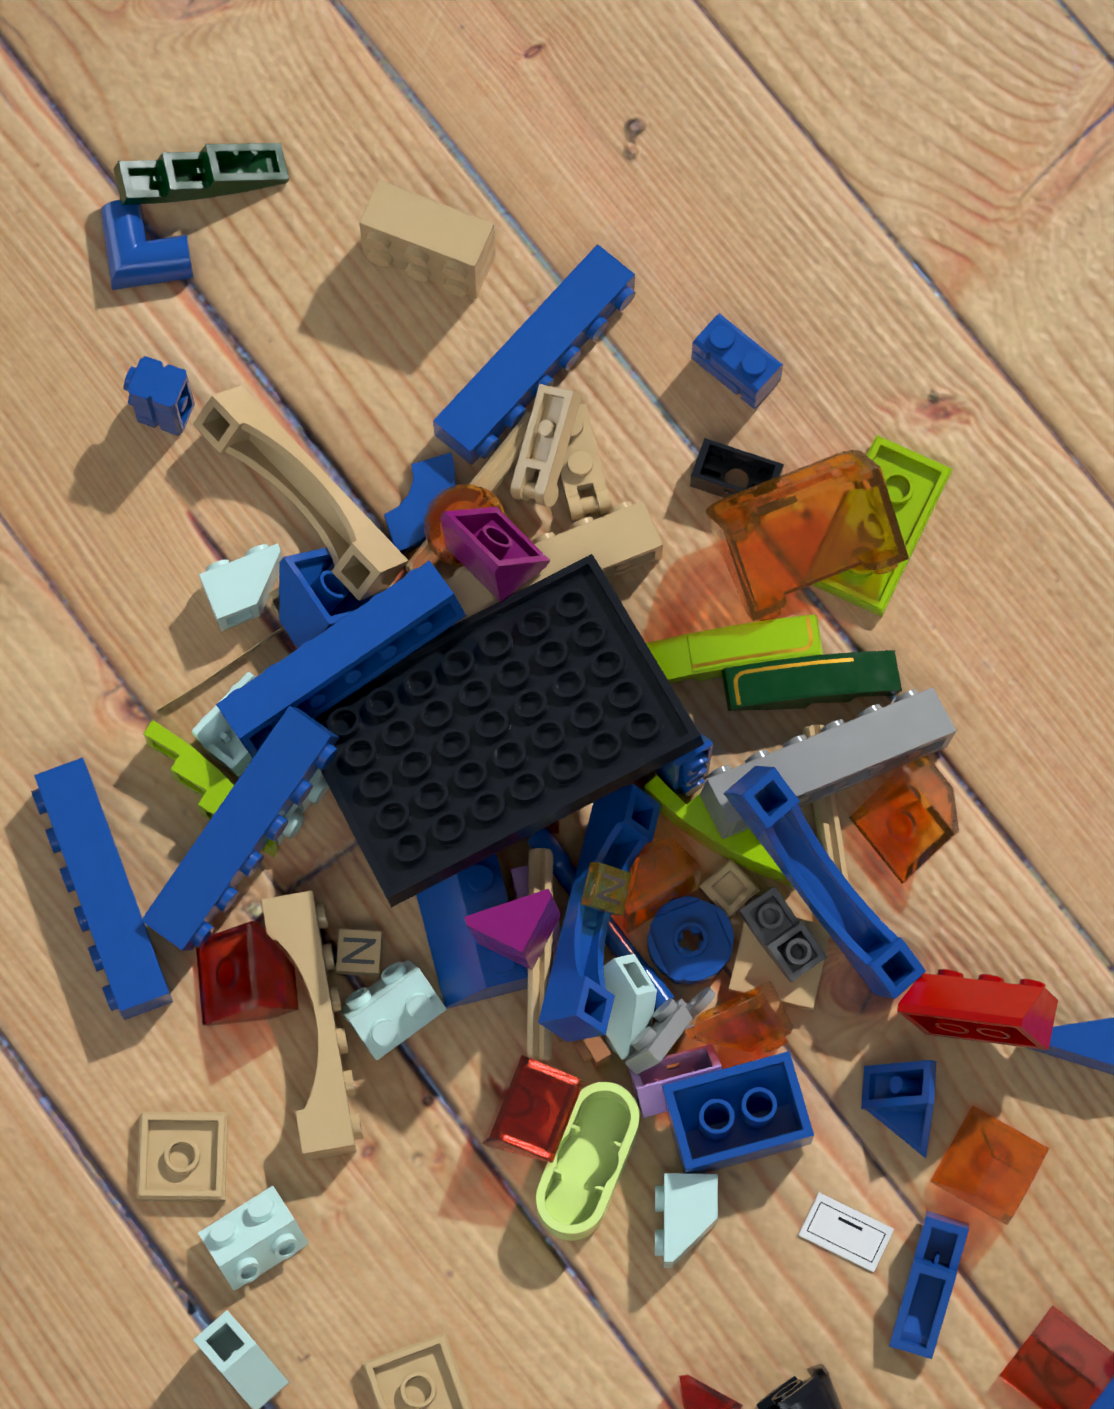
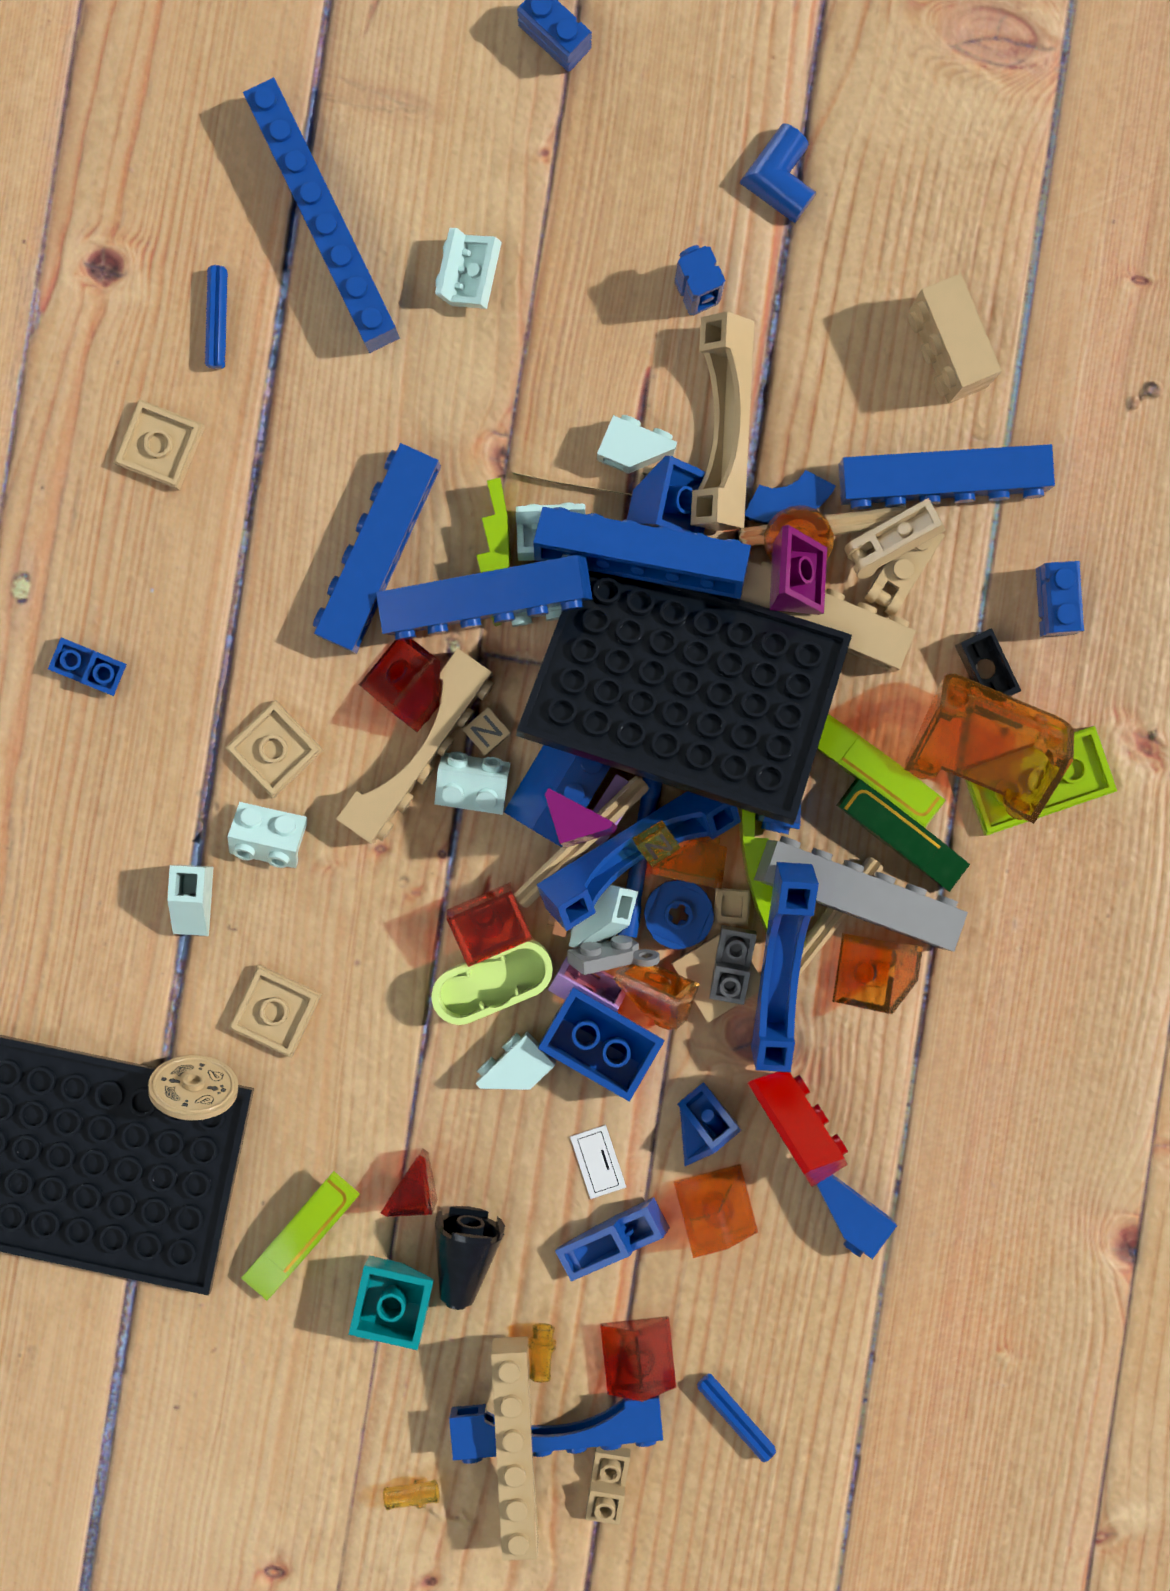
camera: 45 degrees right, 15 degrees up
(202, 174) = (862, 161): dark green slope -> none

